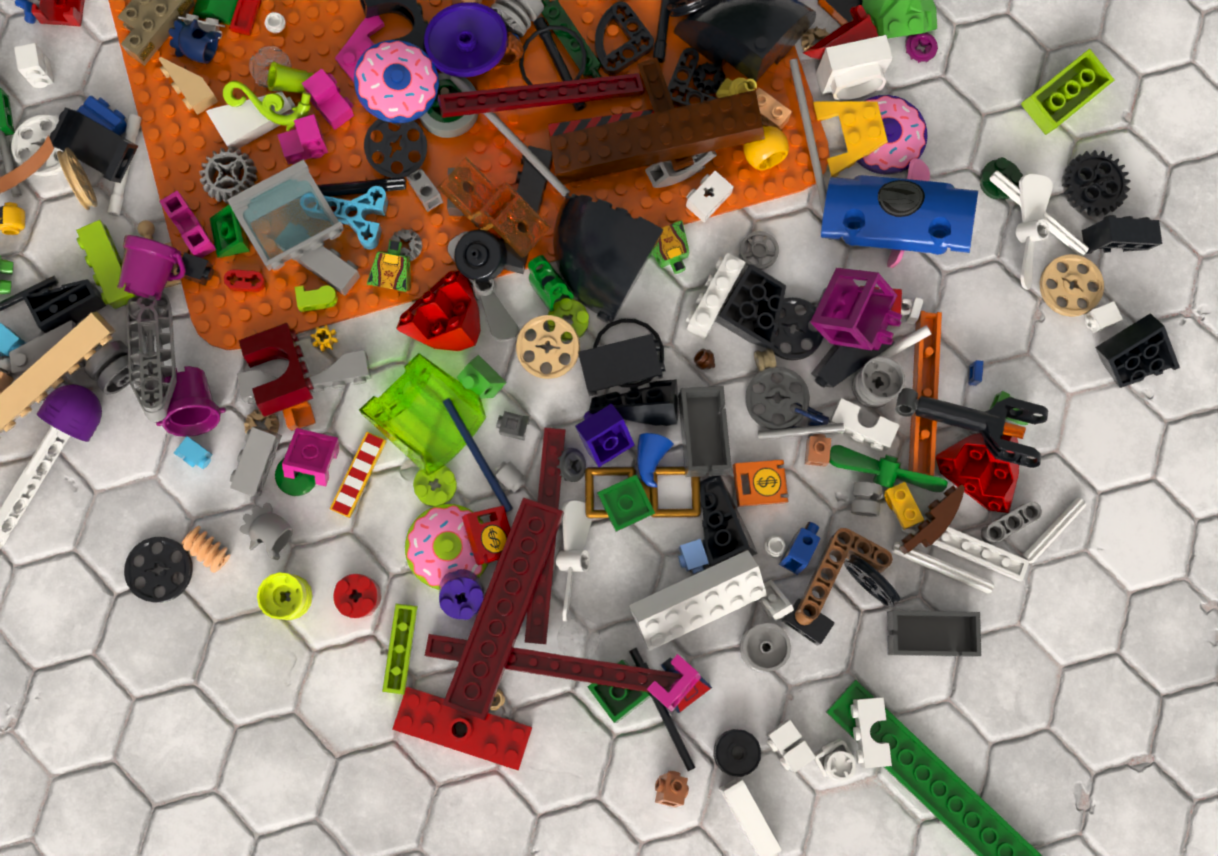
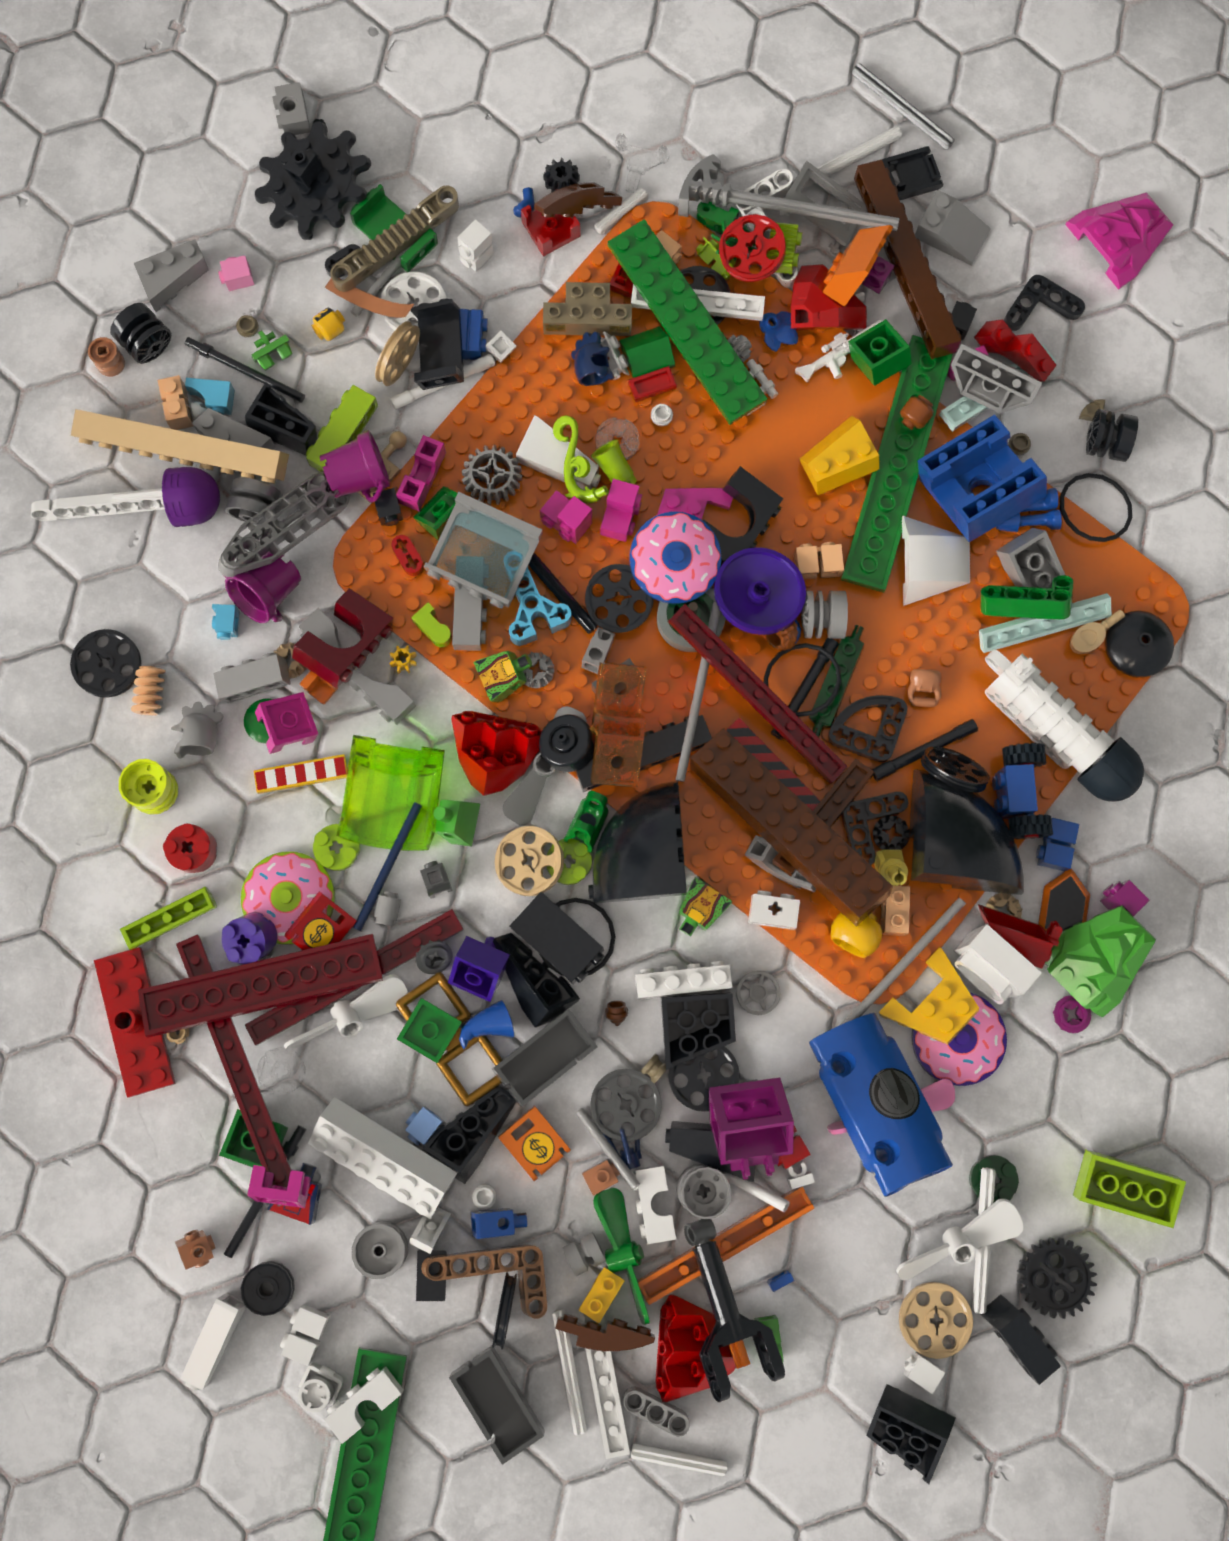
camera: 60 degrees right, 0 degrees up
(130, 102) = (500, 346): none -> white tile
(192, 86) = (549, 390): tan slope -> none

